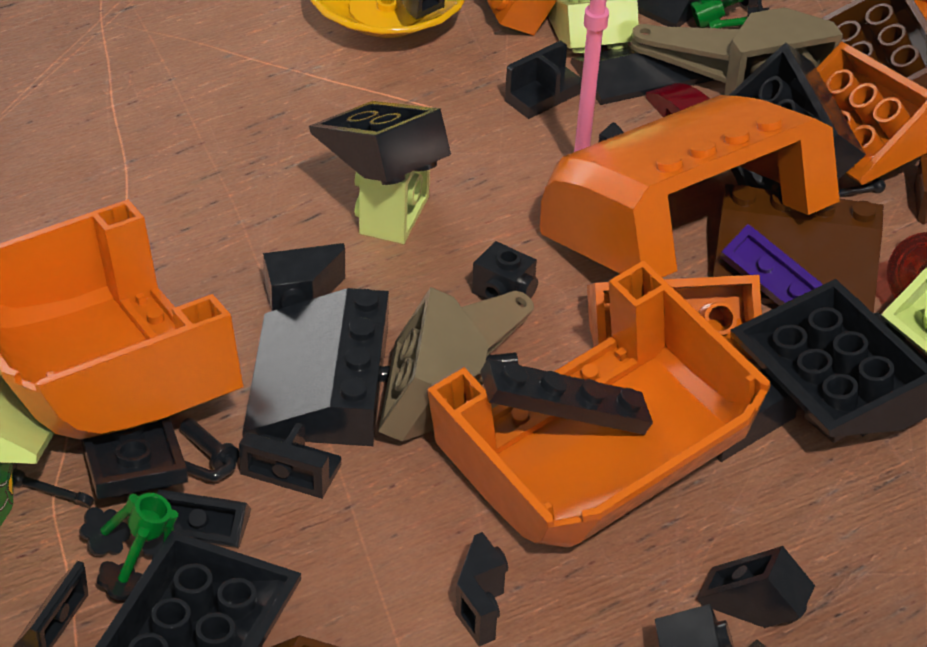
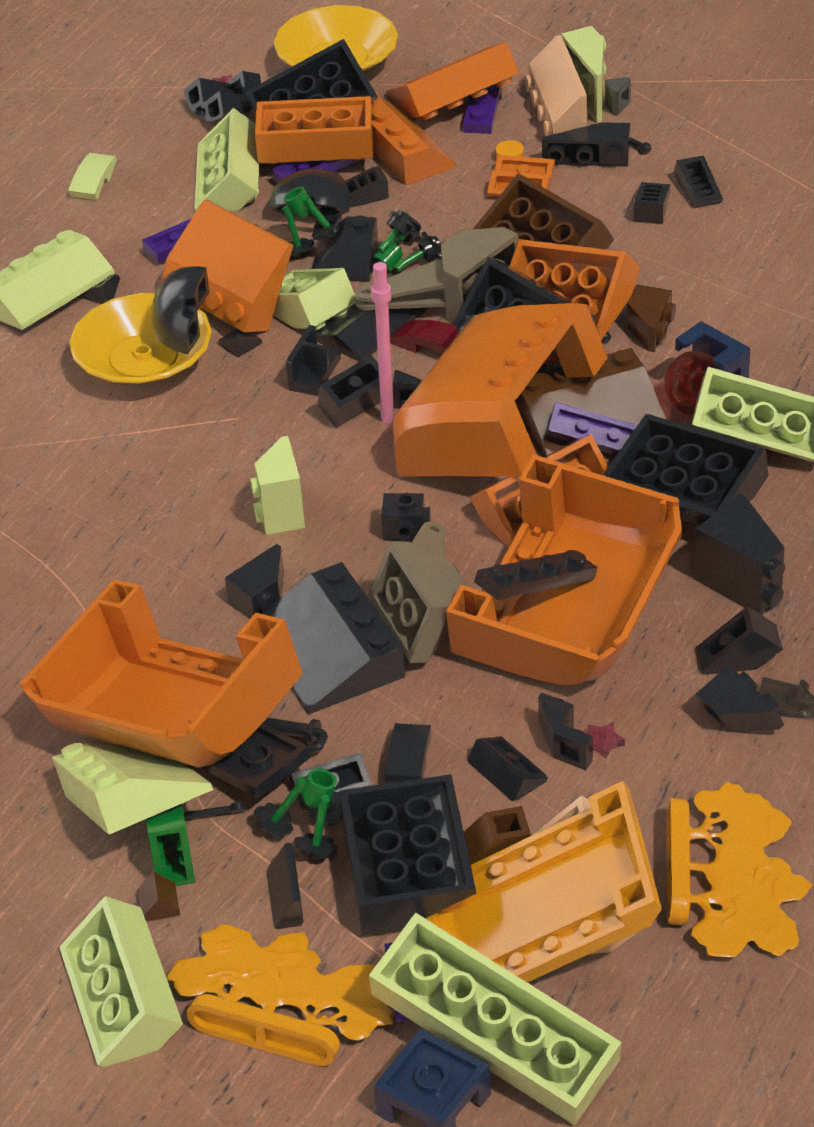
camera: 25 degrees left, 0 degrees up
(288, 462) = (361, 714): black panel -> none
(295, 530) = (407, 752): none -> black slope
(386, 139) = (264, 450): black slope -> none
(393, 598) = (505, 767): none -> black slope
(495, 35) = (240, 342): none -> black slope
(524, 620) = (605, 738): none -> clear pink piece
(548, 126) = (350, 392): none -> black brick
(827, 486) = (740, 556): none -> black slope

